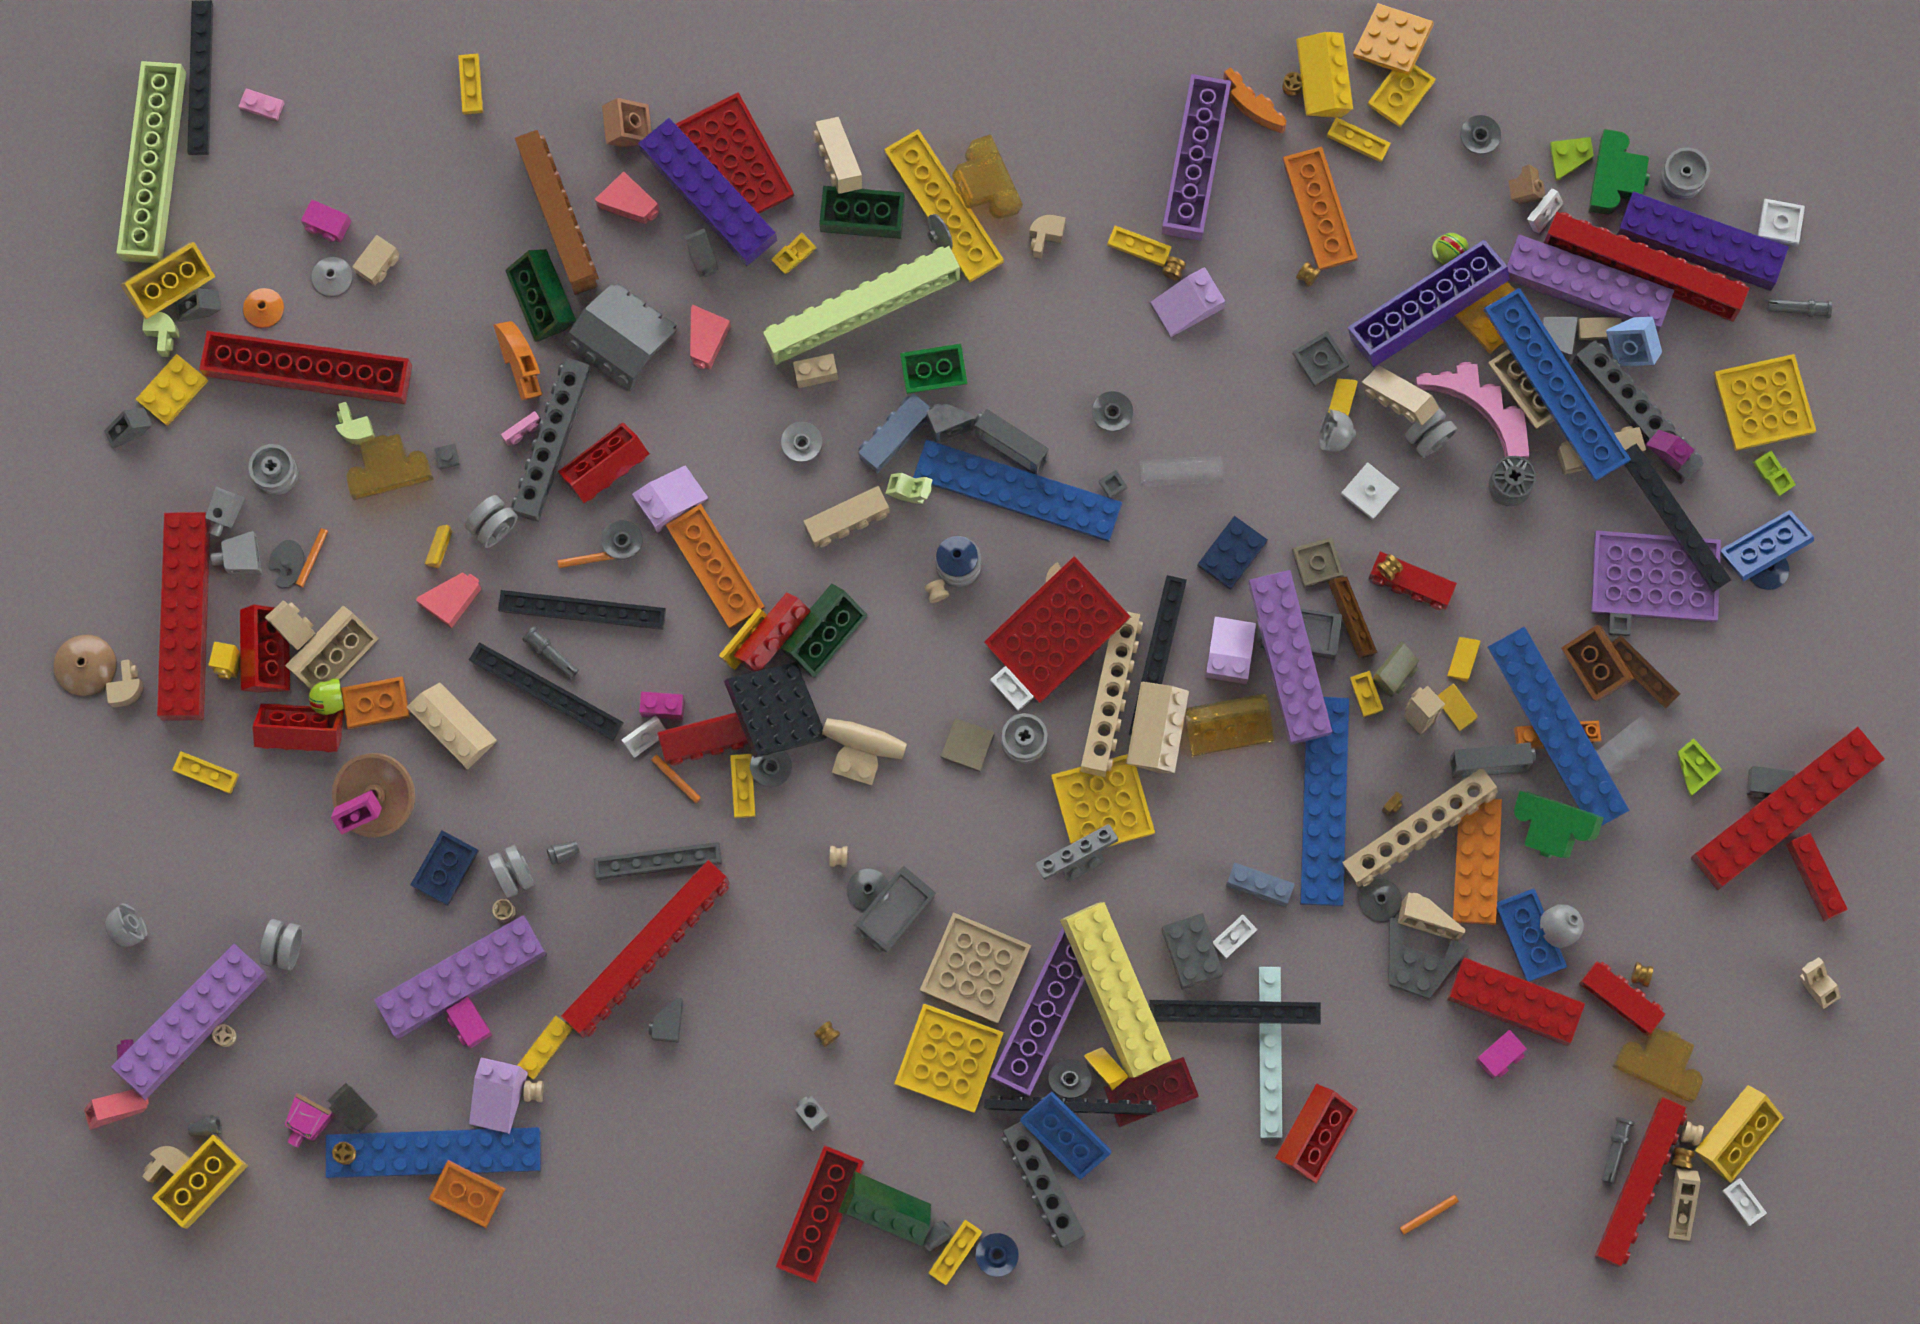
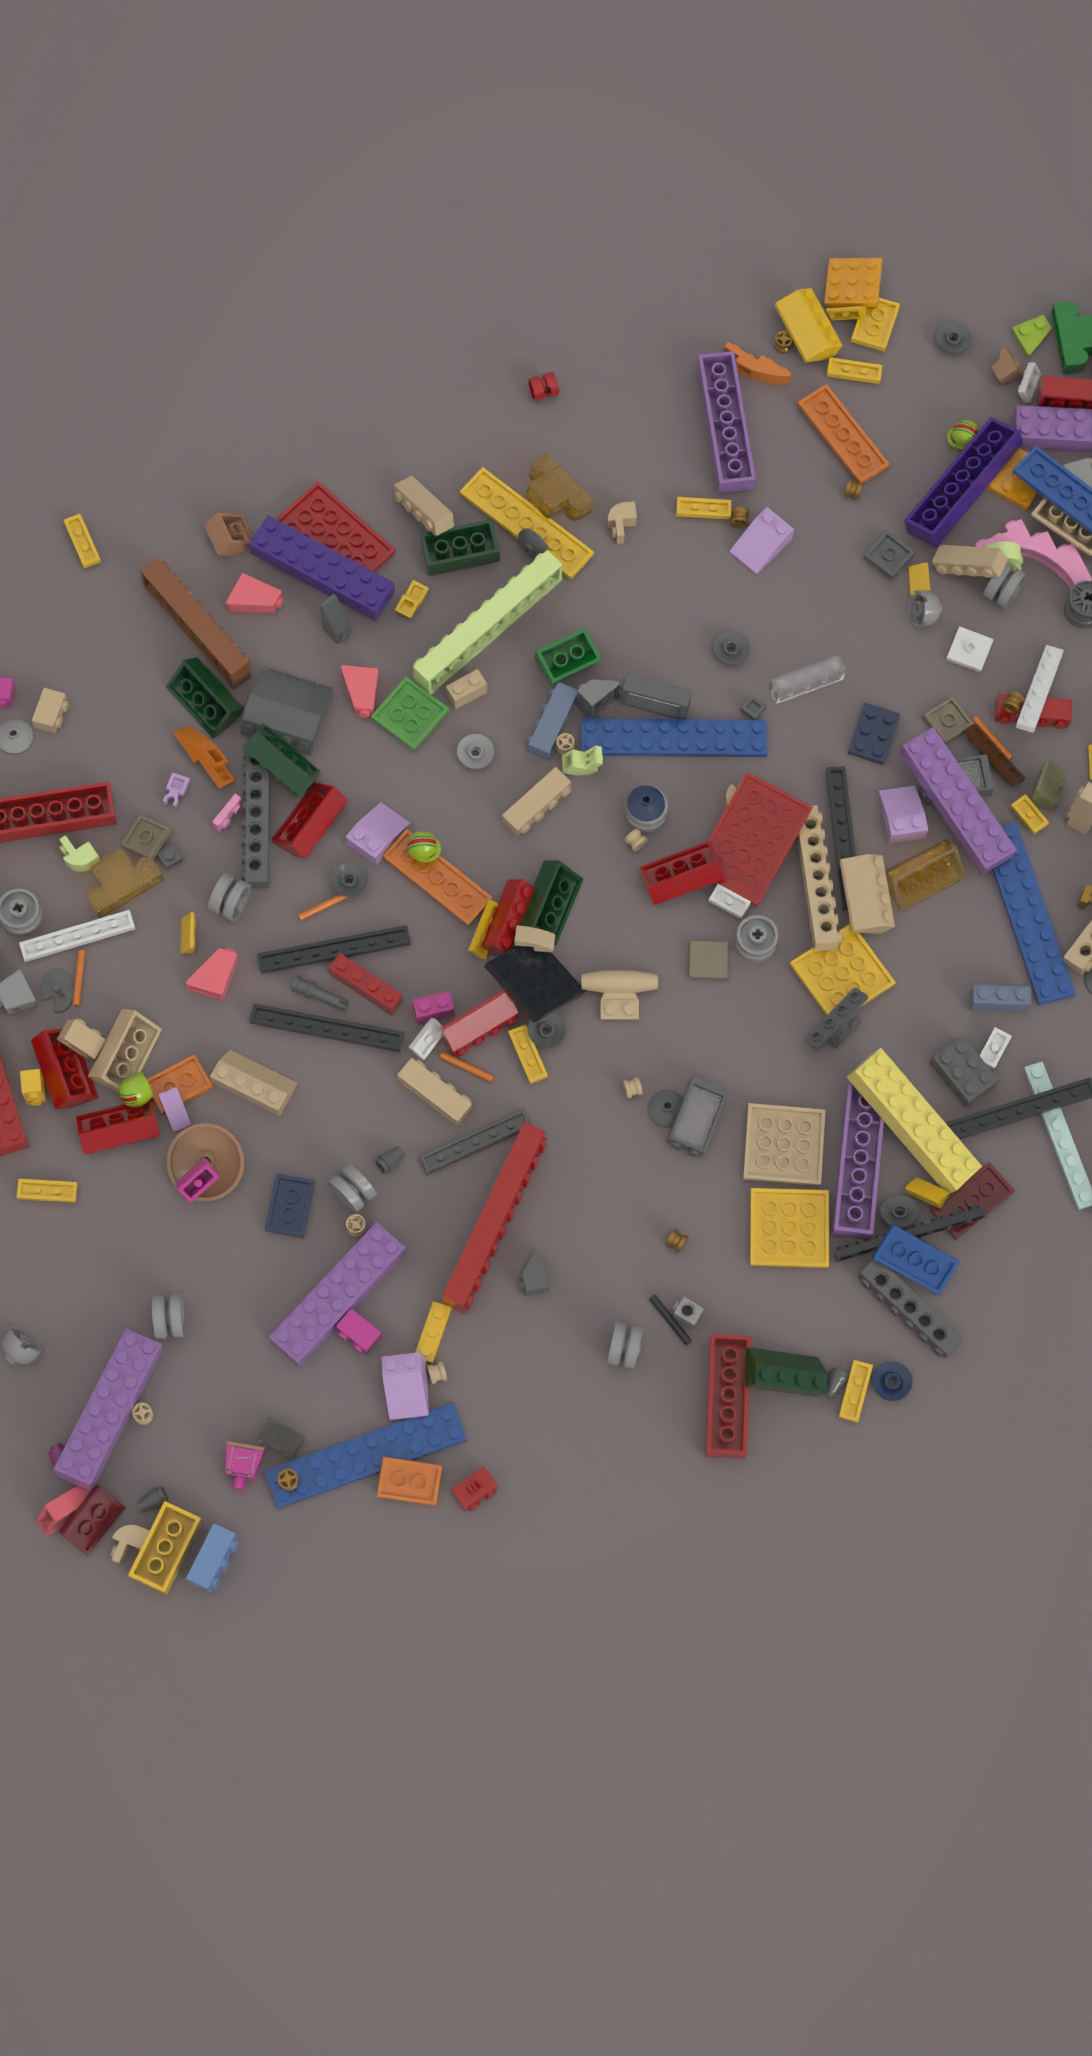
camera: 25 degrees left, 5 degrees down
(136, 1128) = (91, 1519): none -> dark red tile
(242, 1209) = (213, 1559): none -> medium blue brick
(324, 512) = (77, 935): none -> white plate
(362, 729) = (175, 1109): none -> lavender slope
(429, 428) = (146, 837): none -> dark tan tile
(479, 383) = (176, 787): none -> lavender plate
(530, 1224) = (475, 1489): none -> red brick
(594, 389) = (281, 760): none -> dark green slope
(600, 658) = (365, 984): none -> red brick
(632, 795) = (434, 1091): none -> tan brick
(709, 529) = (422, 846): none -> lime helmet
(735, 1128) = (625, 1345): none -> light grey wheel
(748, 379) = (410, 713): none -> bright green plate
(789, 665) = (535, 937): none -> tan slope
(792, 1114) = (670, 1319): none -> black bar
(899, 458) = (564, 740): none -> tan wheel
(970, 642) = (682, 872): none -> red slope
(1014, 57) = (543, 386): none -> red wheel
(1349, 573) = (977, 720): none -> orange bar
(1373, 71) = (846, 313): none -> yellow slope
(1426, 560) = (1039, 689): none -> white plate
(1447, 399) = (1011, 551): none -> yellowish green brick

